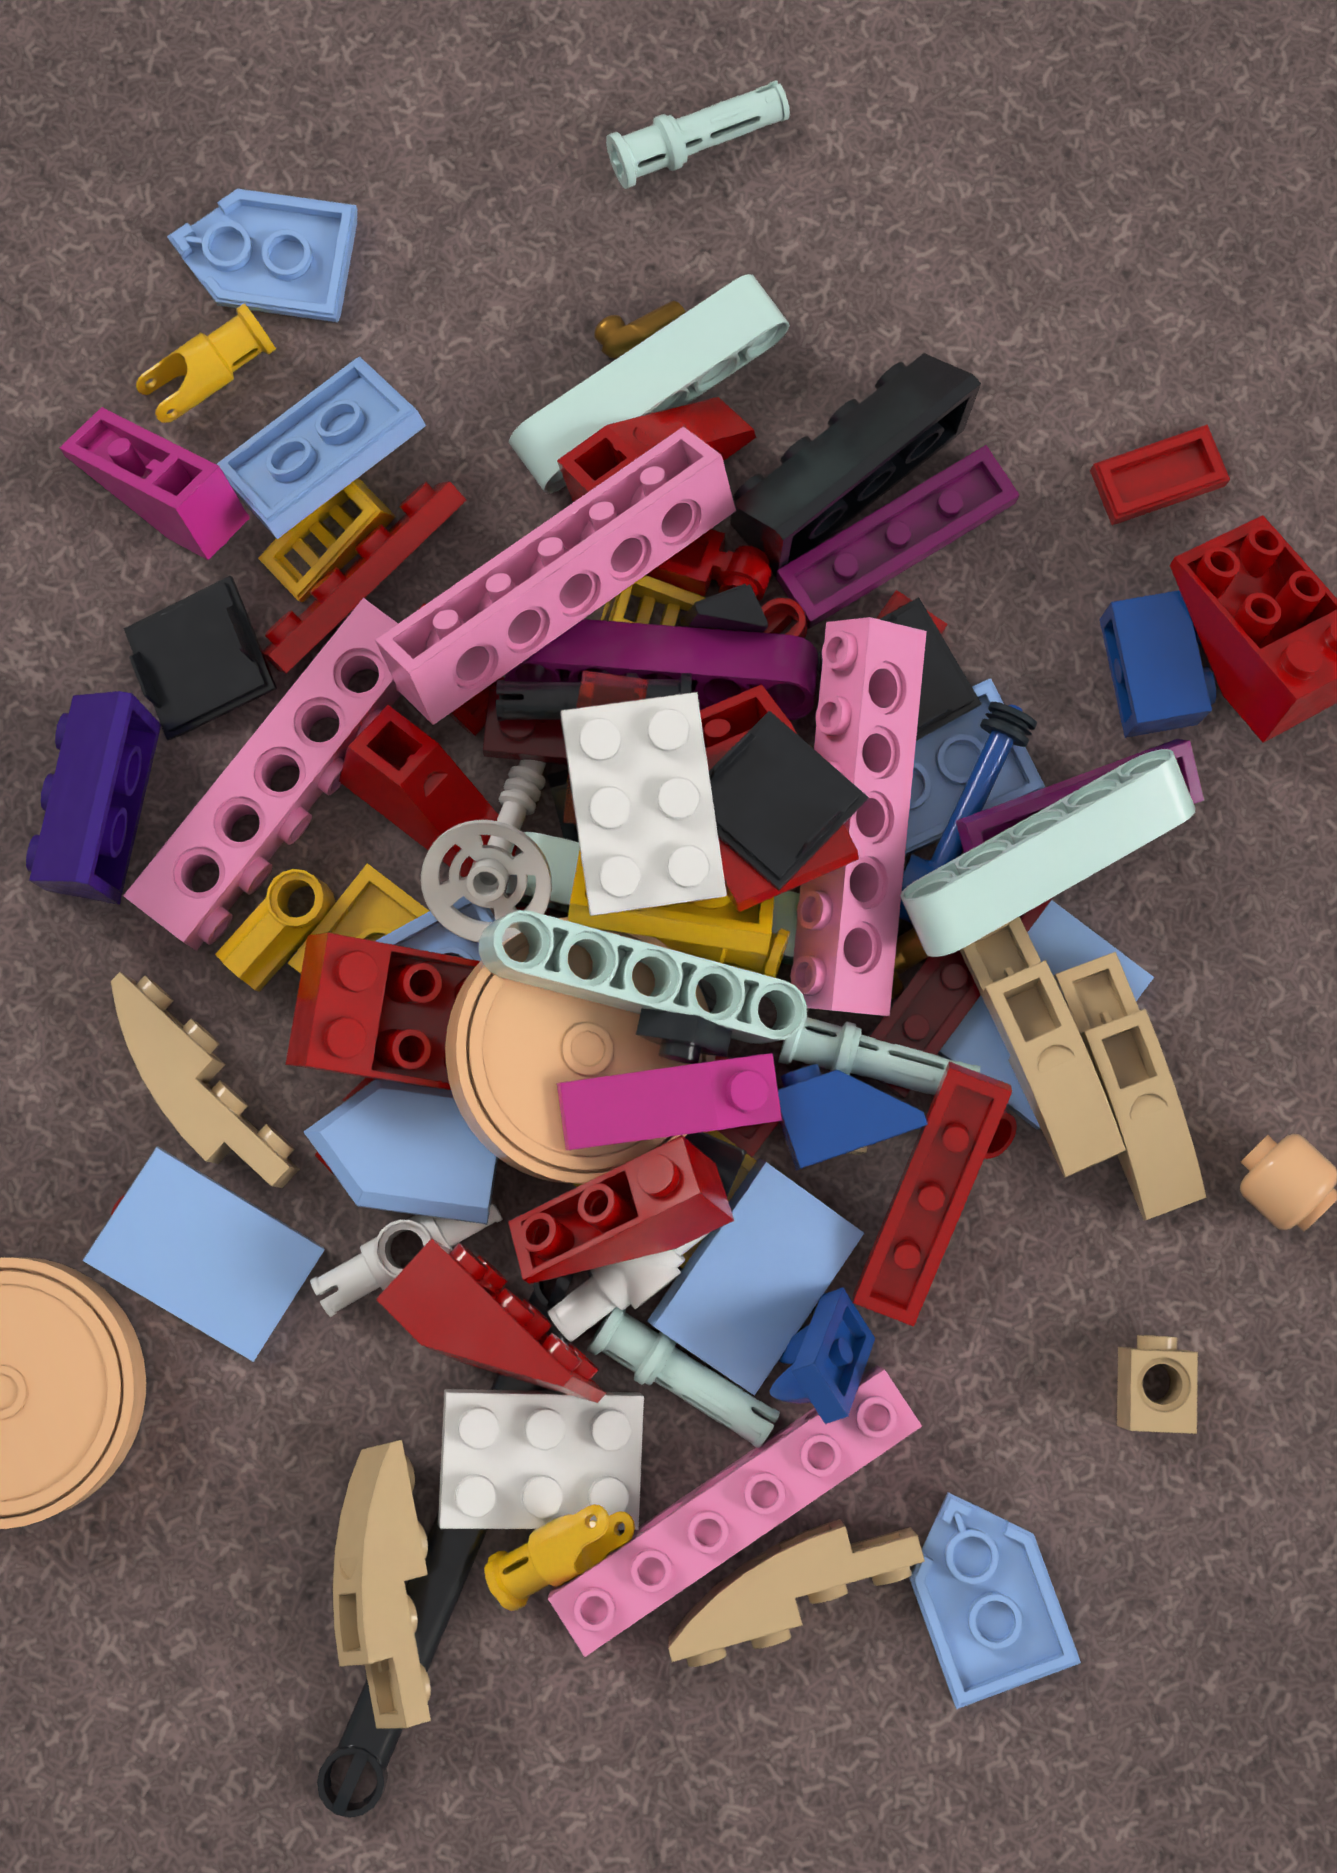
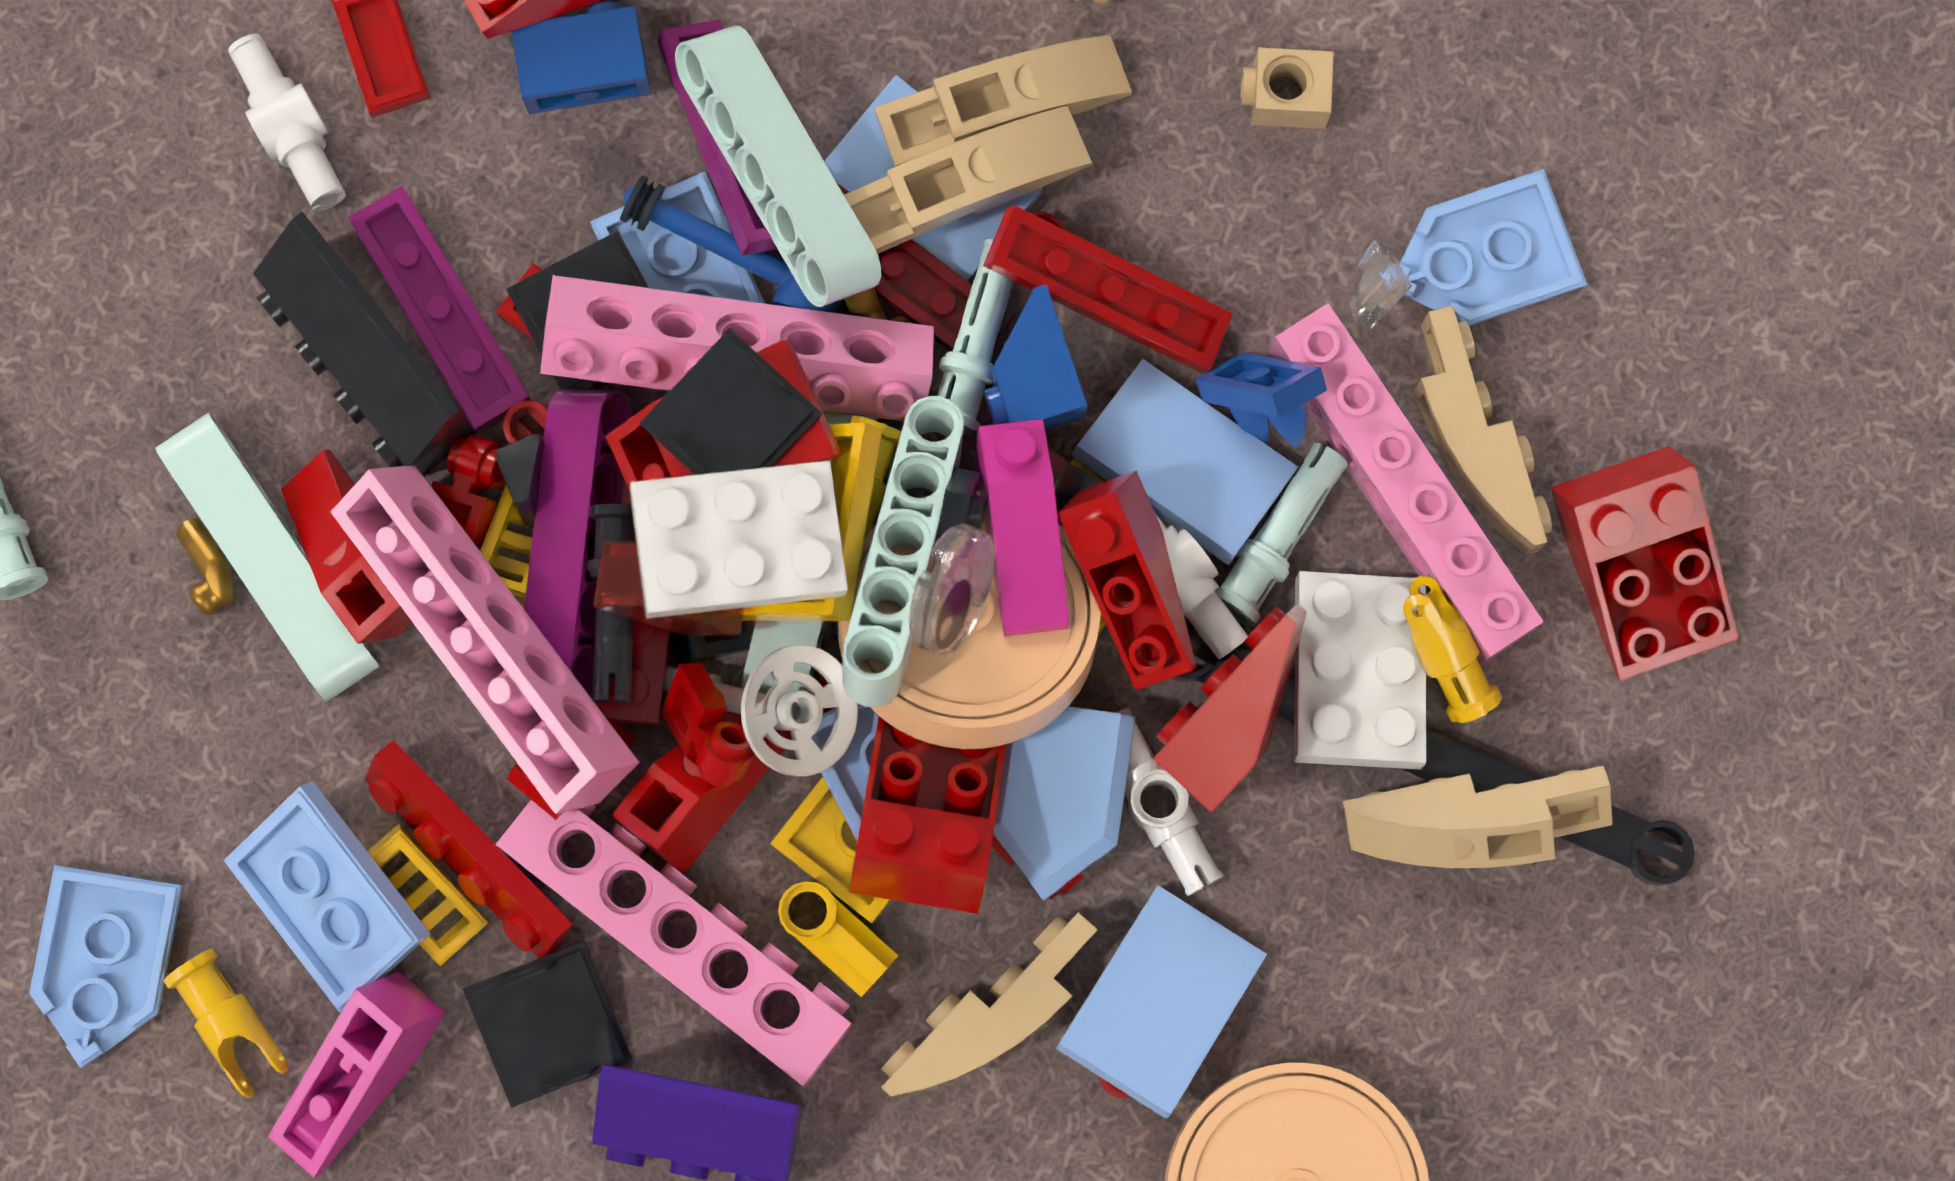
camera: 90 degrees left, 0 degrees up
(486, 783) = (696, 718): none -> red plate
(592, 1027) = (953, 596): none -> clear tile
(661, 1770) = (1647, 560): none -> red slope
(948, 1483) = (1379, 286): none -> clear tile
(1079, 386) = (286, 122): none -> white pin

